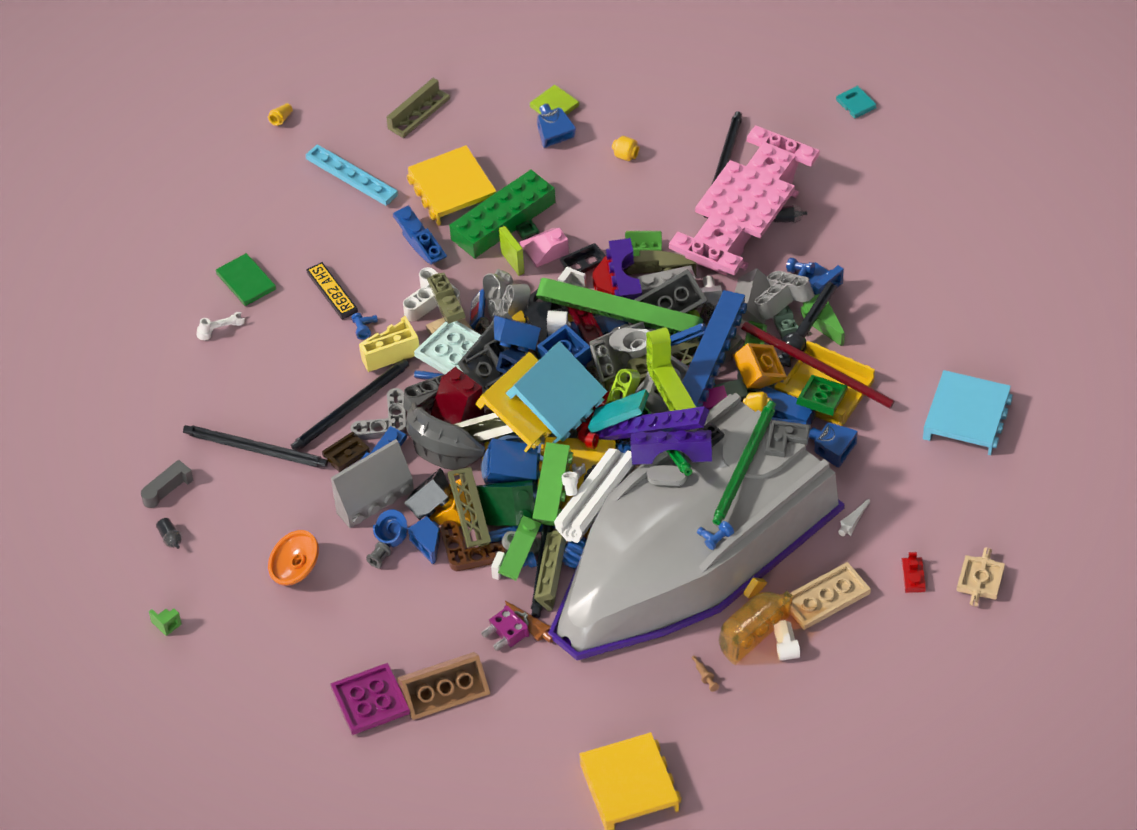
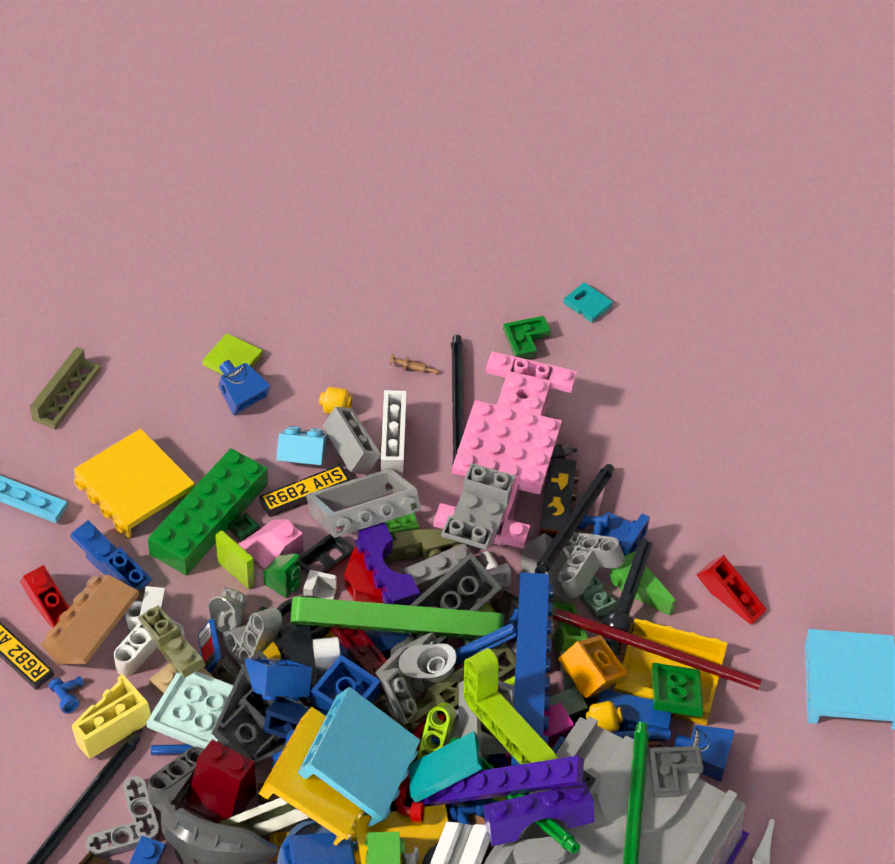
camera: 20 degrees left, 0 degrees up
(366, 258) = (44, 595): none -> red slope
(390, 275) = (89, 620): none -> medium nougat slope
(442, 266) = (152, 597): none -> white sticker
(546, 266) = (283, 574): none -> green slope
(582, 210) = (295, 493): none -> tile
(588, 178) = (302, 446): none -> medium azure slope
(620, 223) = (326, 501): none -> light grey window
(627, 178) = (351, 440): none -> light grey brick
(662, 178) = (393, 431): none -> white brick
(691, 128) = (412, 365): none -> medium nougat piece
(706, 238) = (480, 507): none -> light grey slope
(779, 245) = (558, 495): none -> black brick
(784, 261) = (574, 520): none -> black piece
(792, 117) = (523, 332): none -> green plate
(894, 333) = (730, 588): none -> red slope

